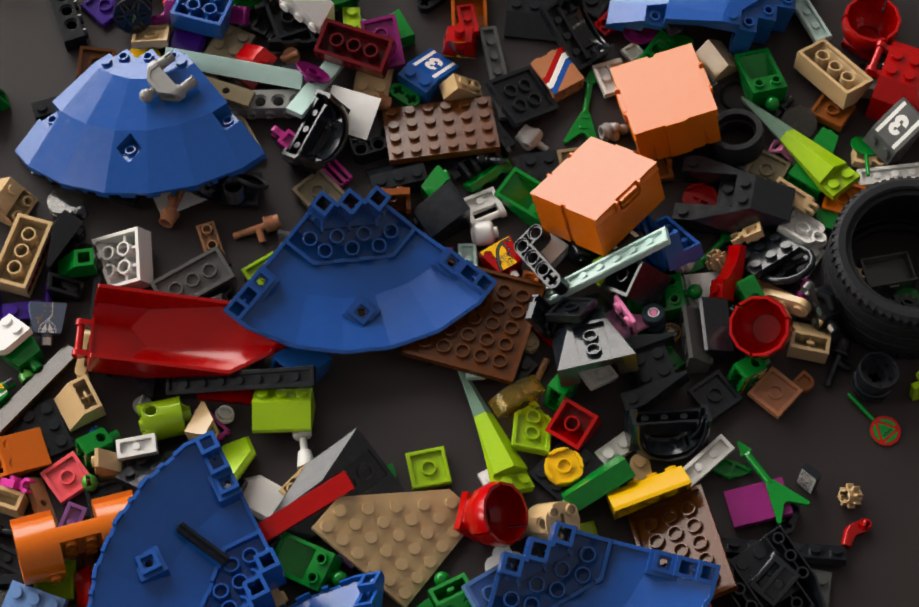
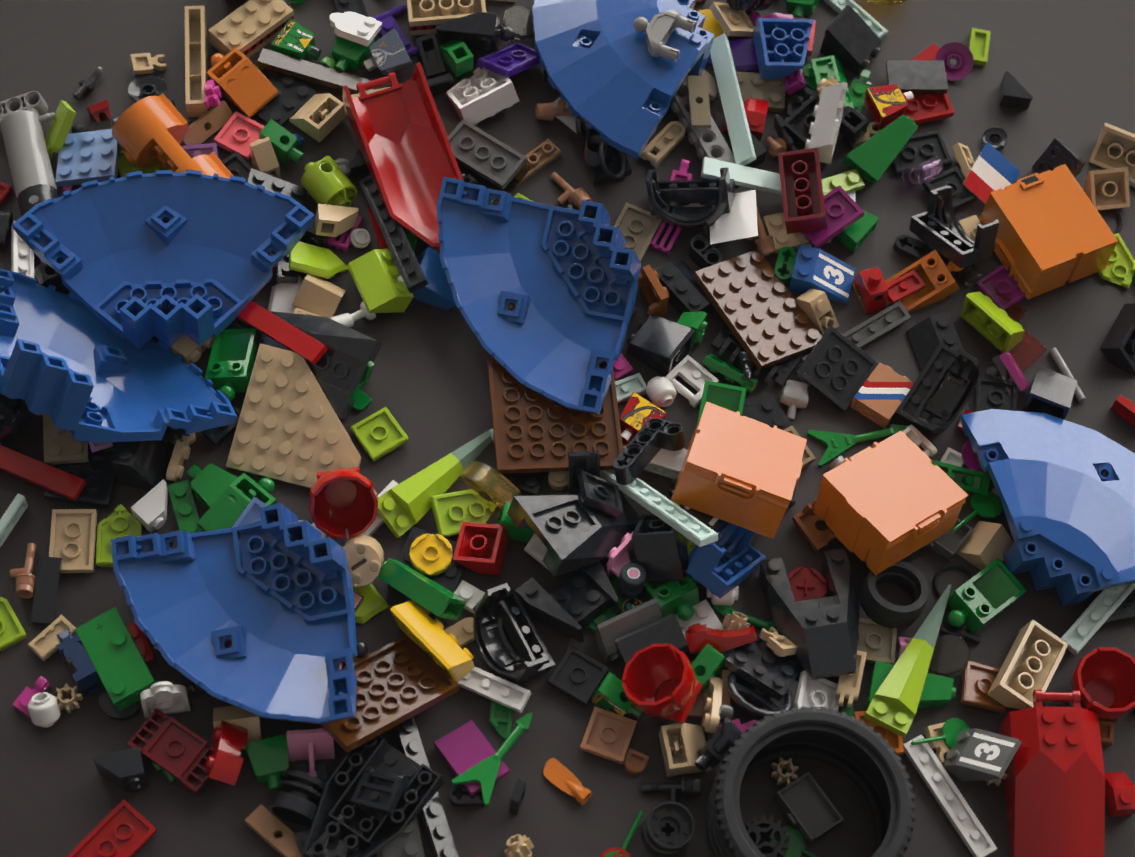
camera: 60 degrees right, 0 degrees up
(94, 482) = (243, 153): bright green hinge -> none
(106, 222) = (510, 60): none -> dark purple tile
(136, 447) = (288, 173): white plate -> none
(203, 544) = (205, 258): black axle -> none
(271, 469) = (318, 296): none -> tan slope
(312, 73) = (755, 164): magenta dish -> none
(801, 440) = (566, 781): none -> orange piece

